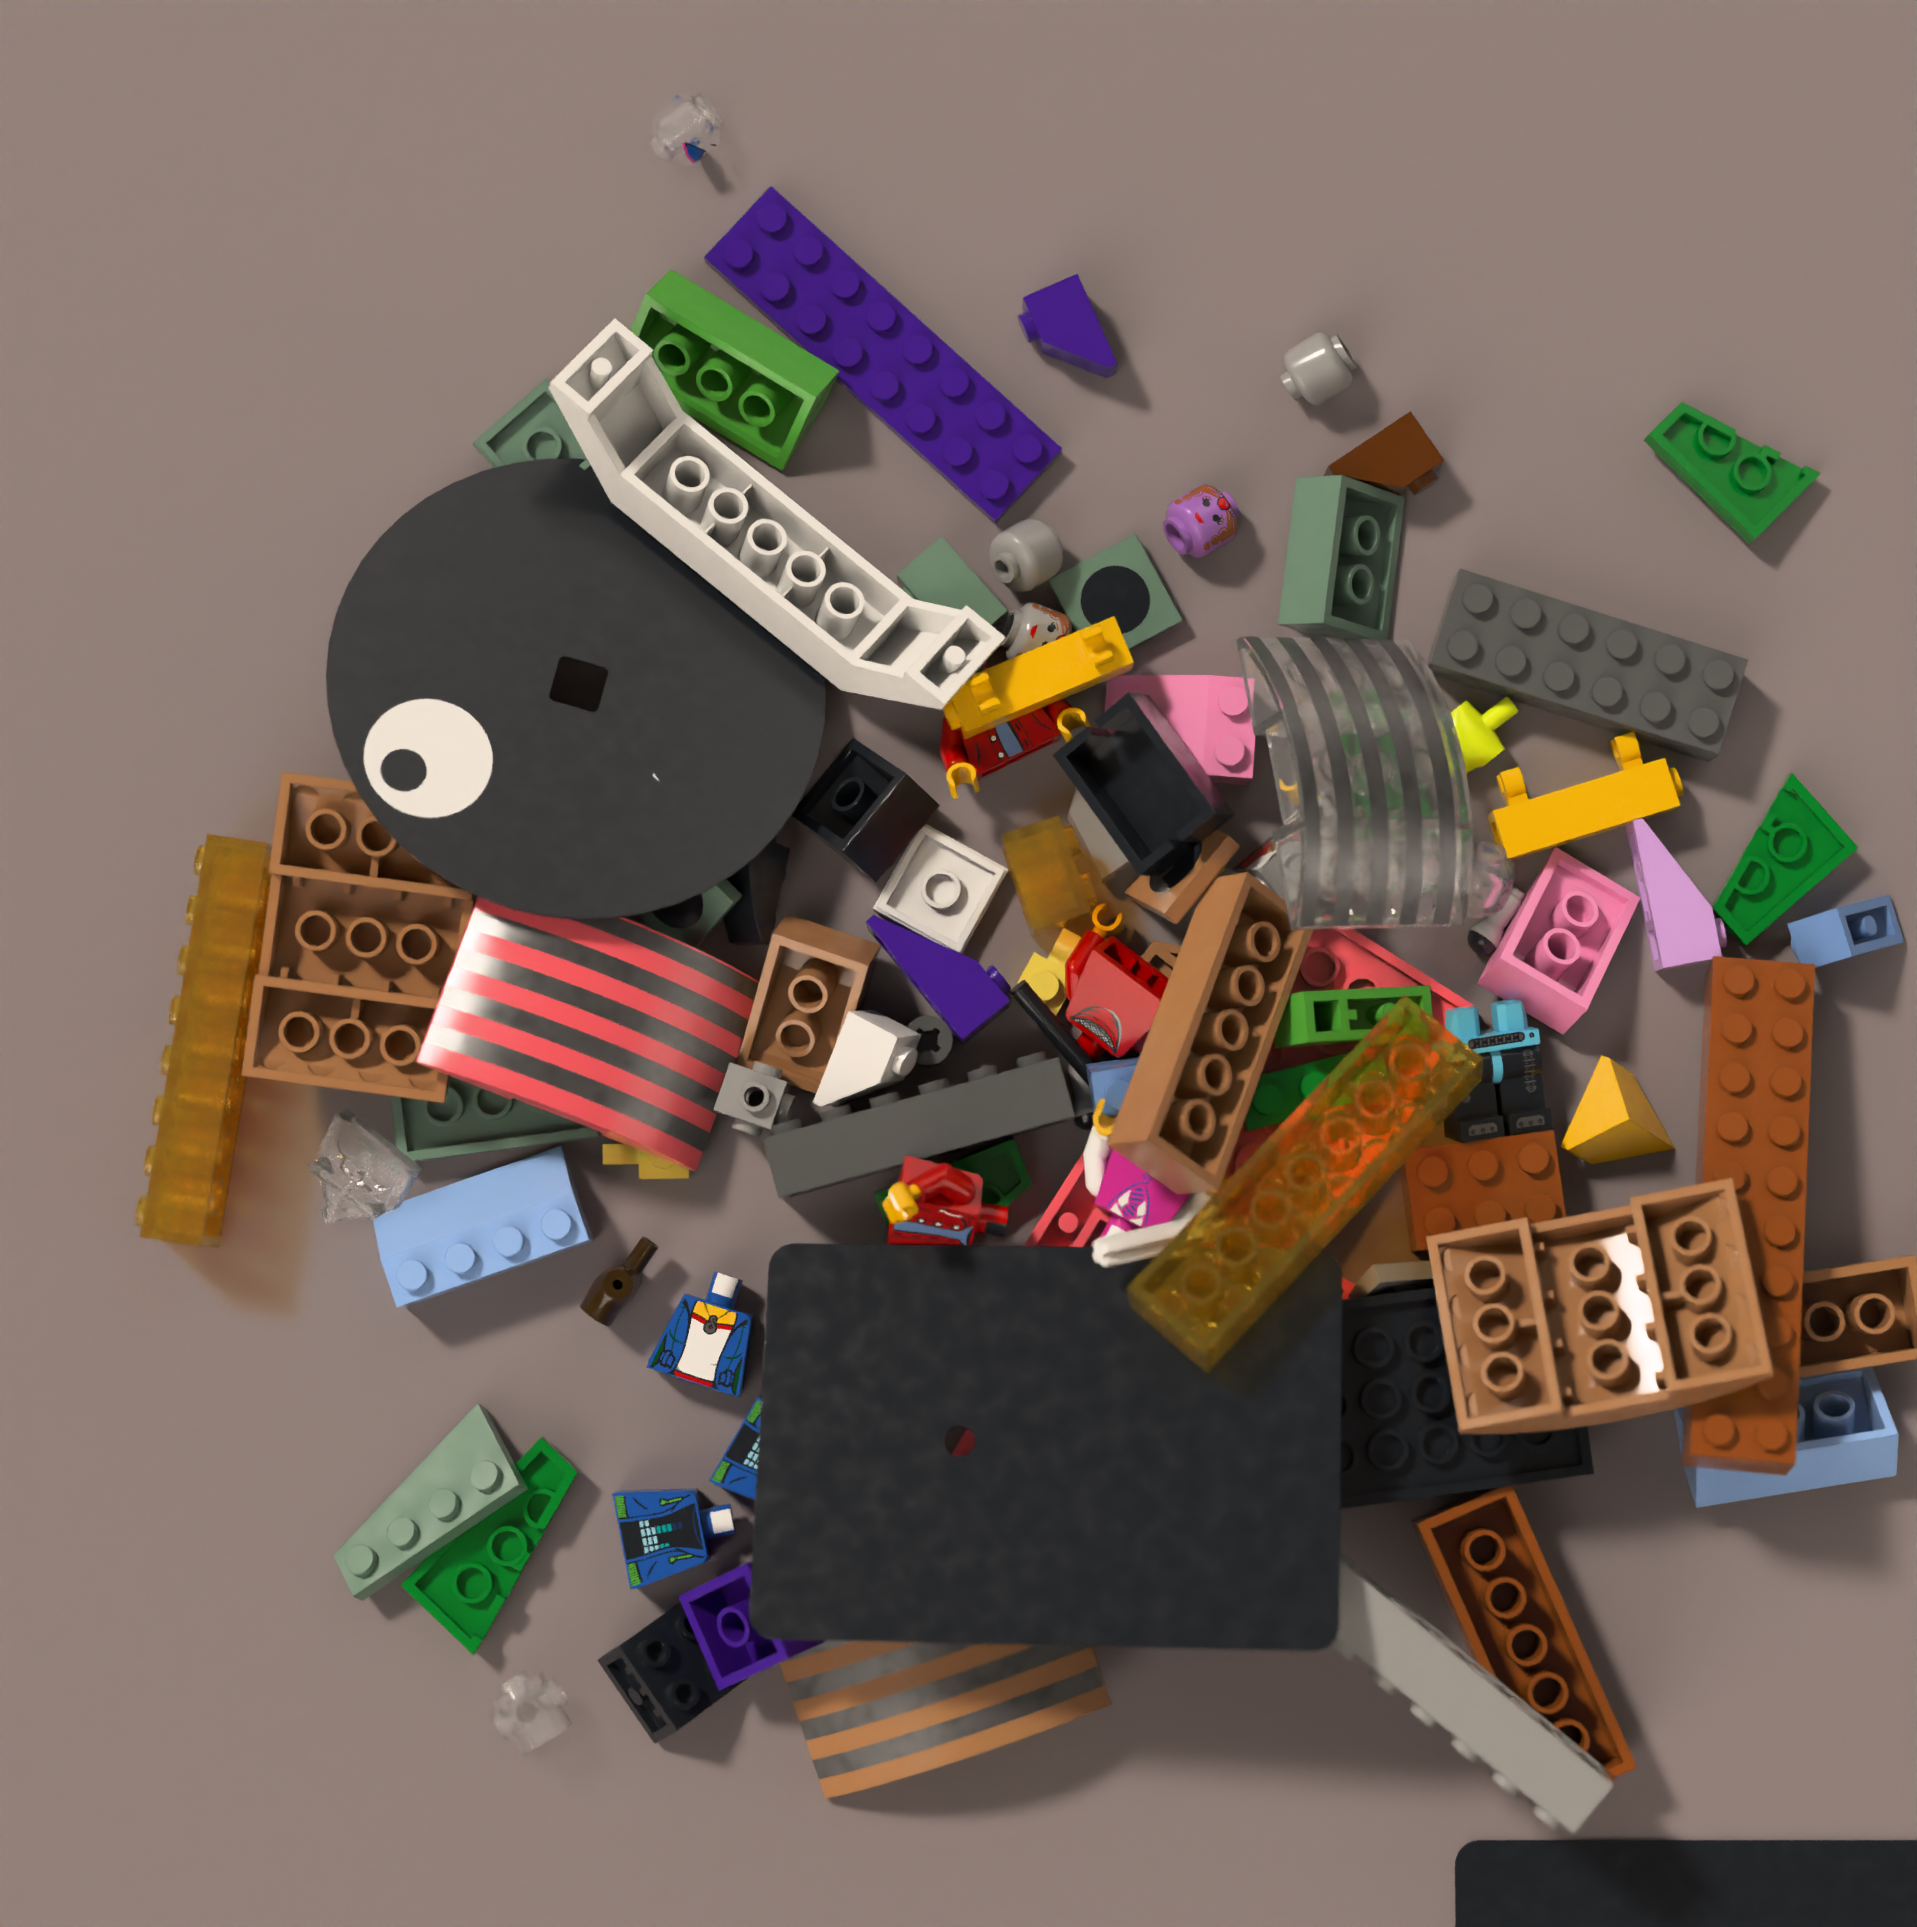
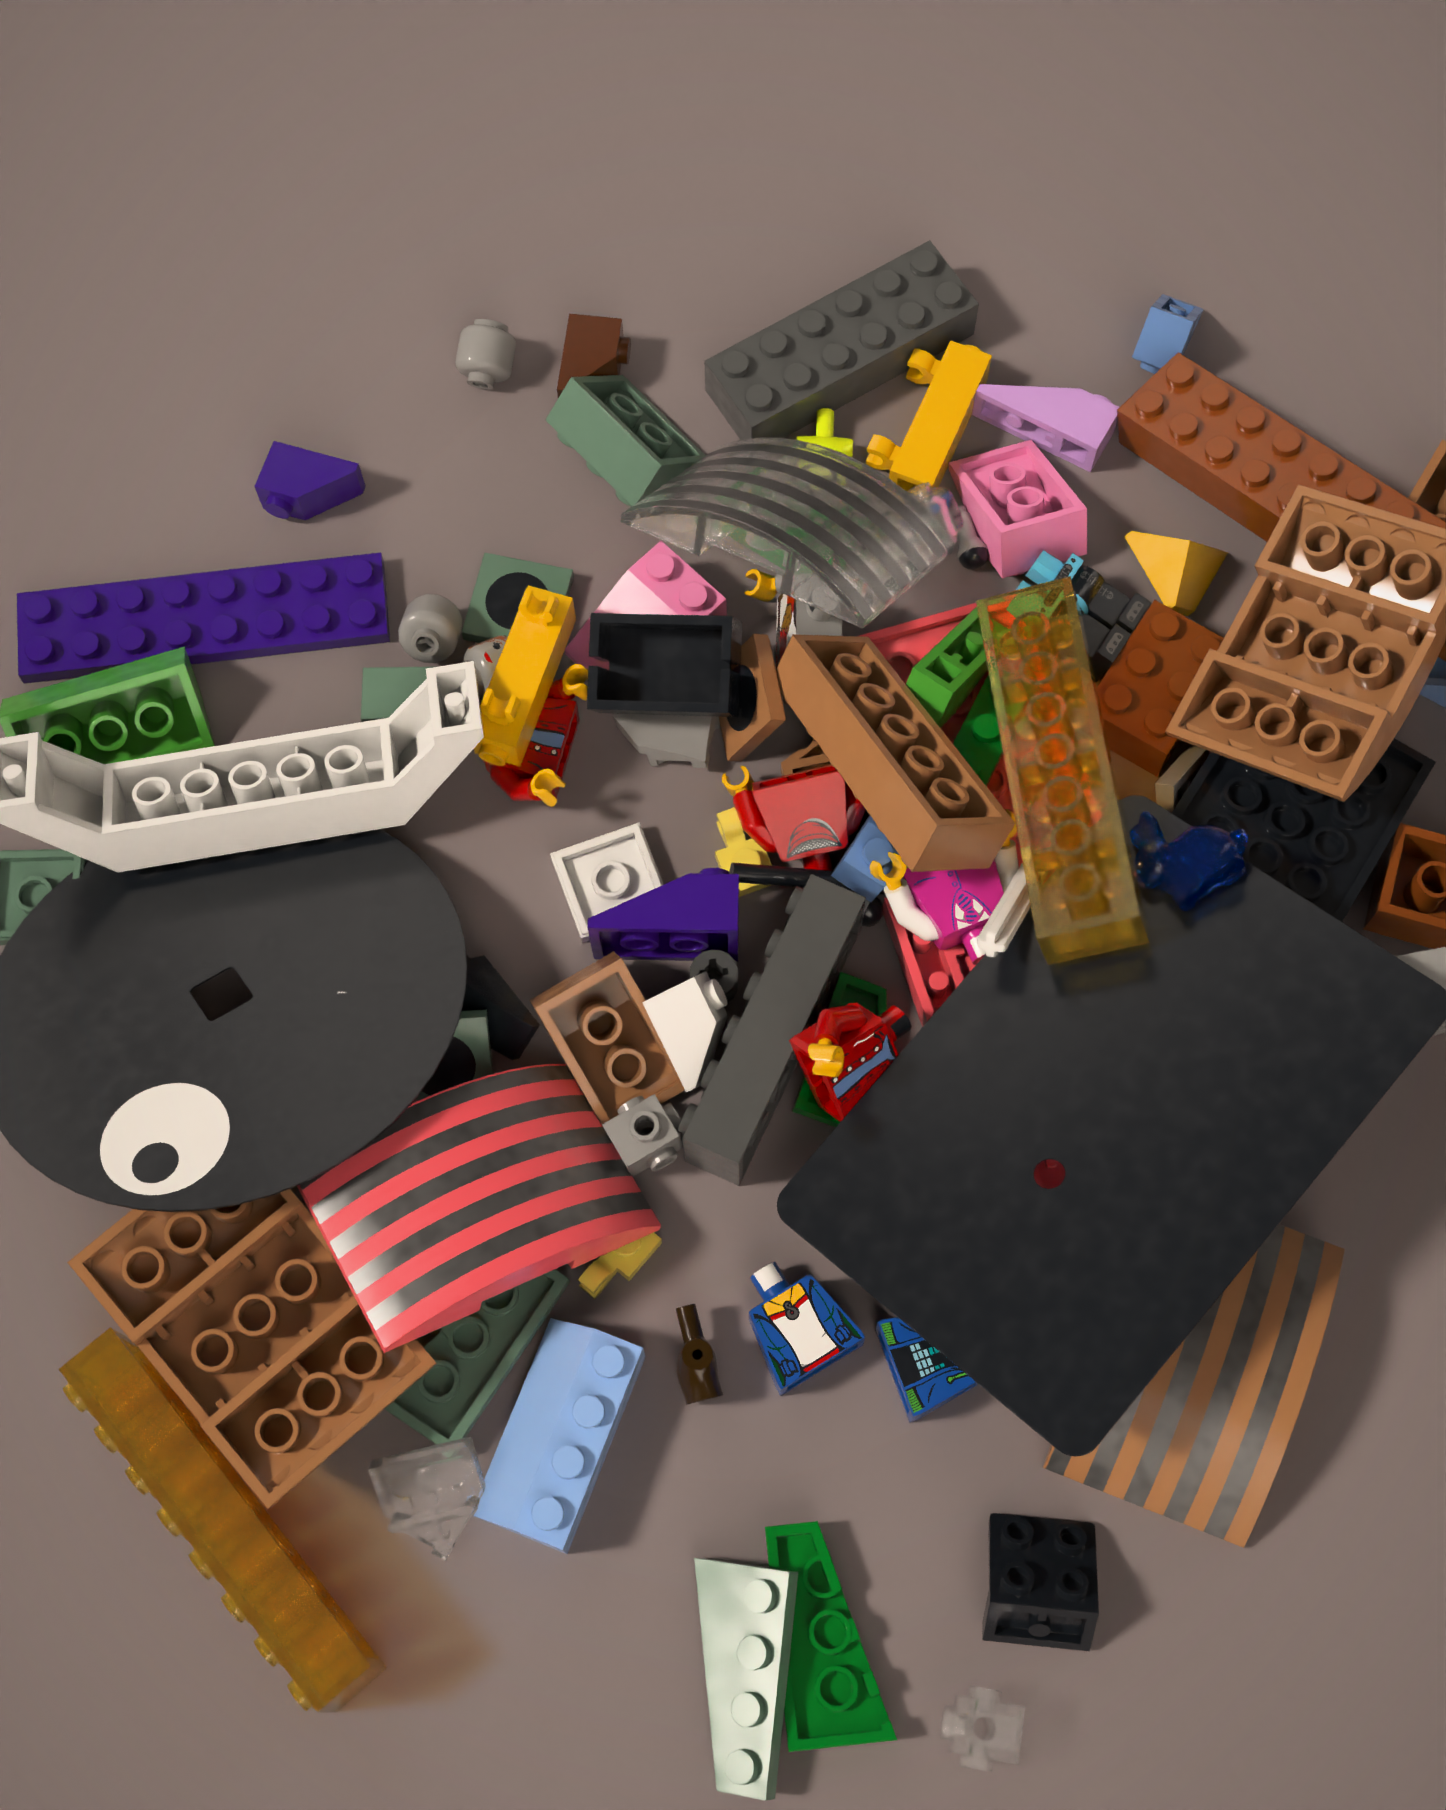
camera: 50 degrees left, 15 degrees down
(667, 1531) = (925, 1490): torso -> none
(724, 1630) = (1050, 1491): dark purple brick -> none
(865, 809) = (506, 881): black slope -> none
(1047, 876) = (669, 790): clear yellow brick -> none
(1201, 521) = (516, 503): medium lavender head -> none
(1297, 1354) = (1191, 863): none -> clear blue animal
(1733, 475) = (798, 174): green wing -> none
(1781, 862) = (1083, 332): green wing -> none

